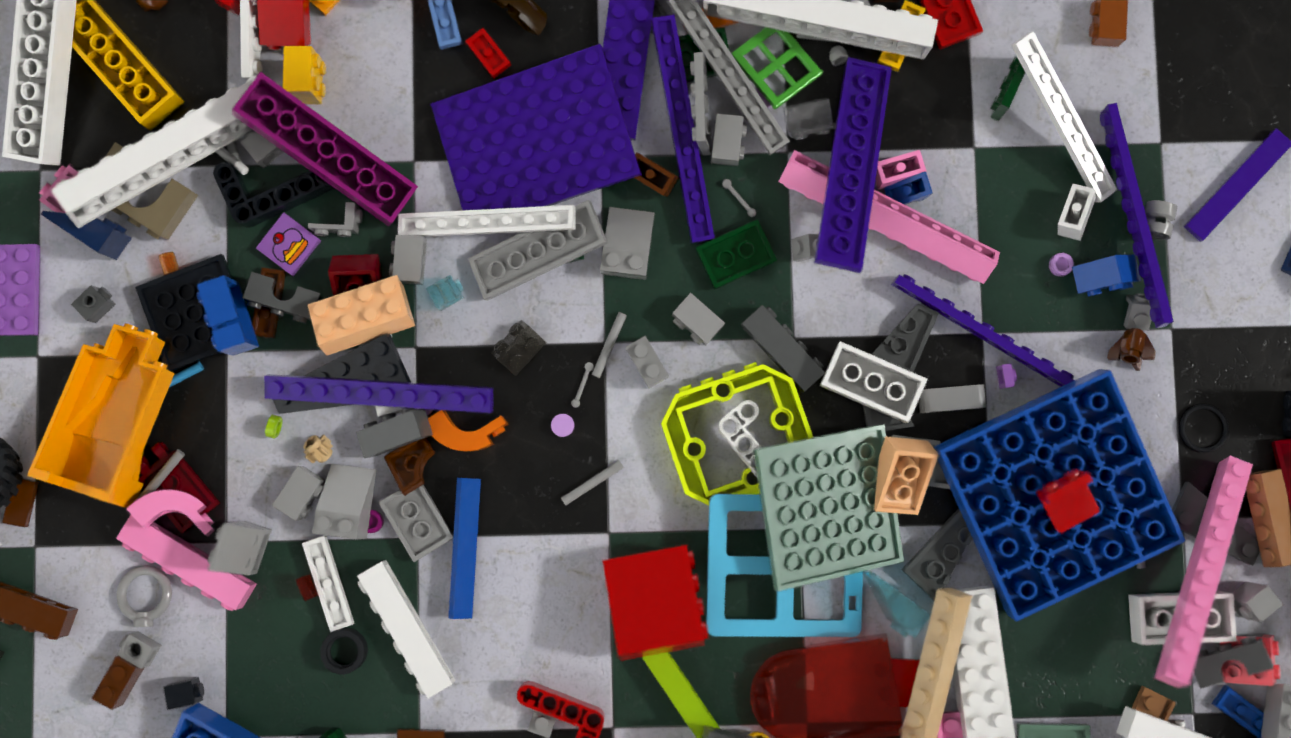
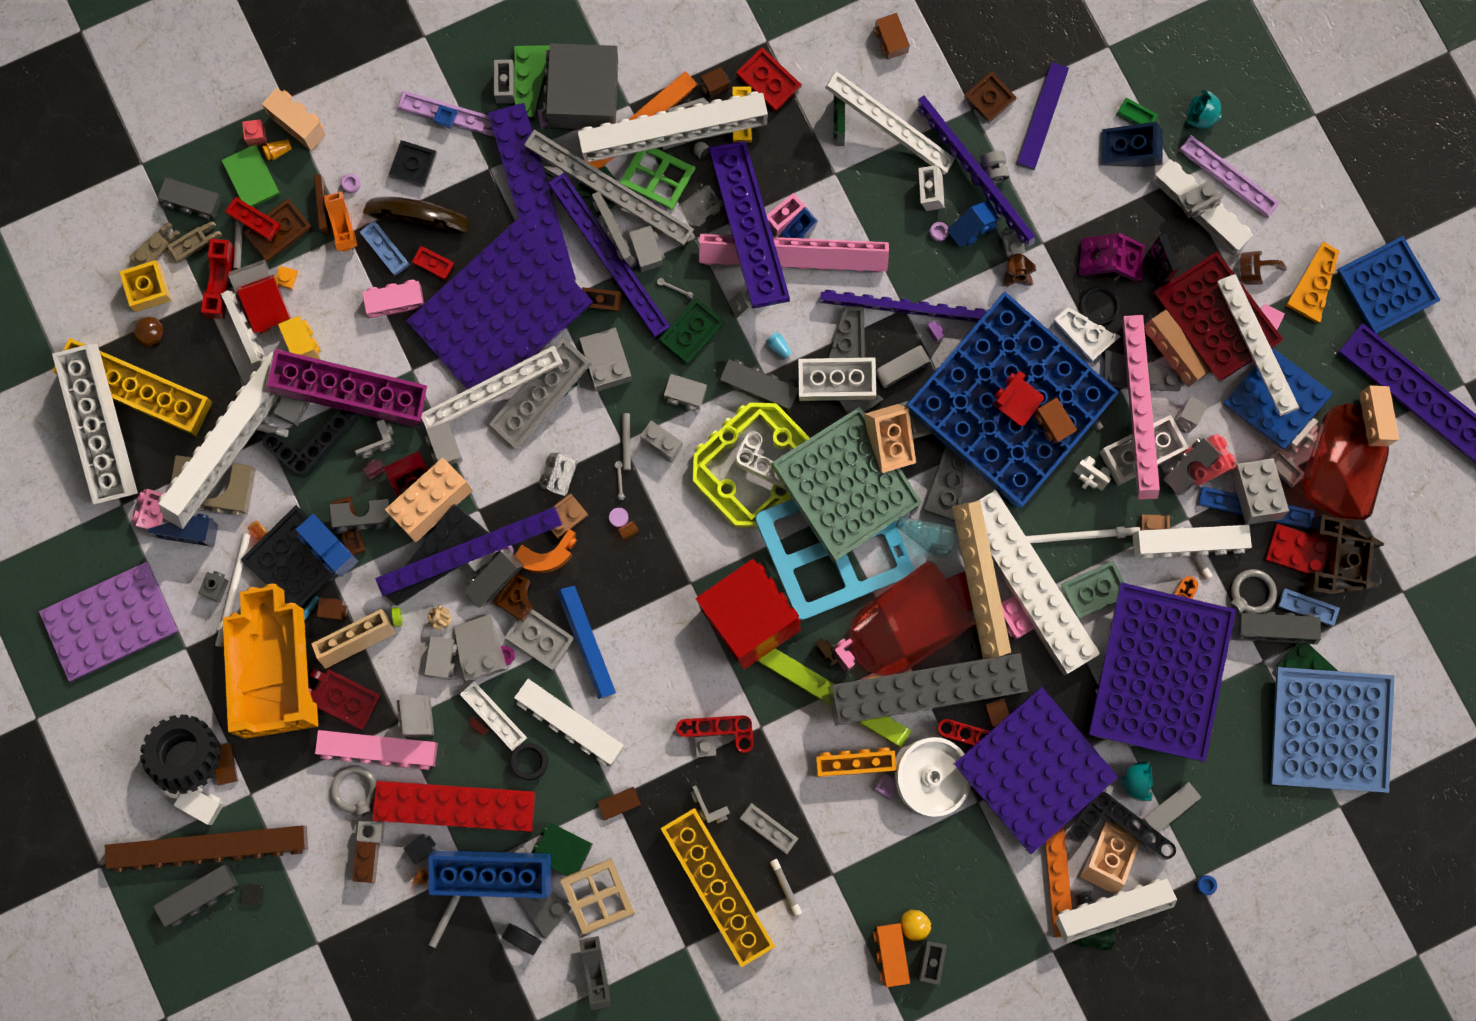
camera: 30 degrees left, 5 degrees down
(120, 308) = (233, 587): none -> white bar
(161, 502) = (347, 705): bright pink arch -> none
(163, 473) = (327, 694): light grey bar -> none
(170, 724) = (421, 877): none -> clear orange hinge
(207, 386) = (332, 609): none -> reddish brown brick
(214, 429) = (353, 638): none -> tan brick
(240, 664) = (454, 806): none -> red brick
(288, 244) = (344, 475): medium lavender tile -> none
(322, 251) = (374, 468): none -> clear pink plate
(426, 73) = (393, 299): none -> bright pink brick
(446, 292) = (484, 456): clear light blue brick -> none
(508, 396) = (570, 514): none -> medium nougat plate
(566, 444) = (628, 530): none -> clear orange hinge
(591, 483) = (660, 551): light grey bar -> none
(721, 681) = (825, 651): none -> dark brown plate
(737, 696) = (844, 658): none -> bright pink bracket
(825, 313) = (779, 345): none -> medium azure cone
(1099, 544) = (1054, 421): none -> dark orange brick
(1108, 618) = (1091, 475): none -> white hips
(1109, 694) = (1119, 532): none -> white bar
(1173, 454) = (1085, 334): none -> white wing
(1188, 137) = (990, 97): none -> reddish brown plate
(1255, 381) = (1117, 255): none -> magenta bracket

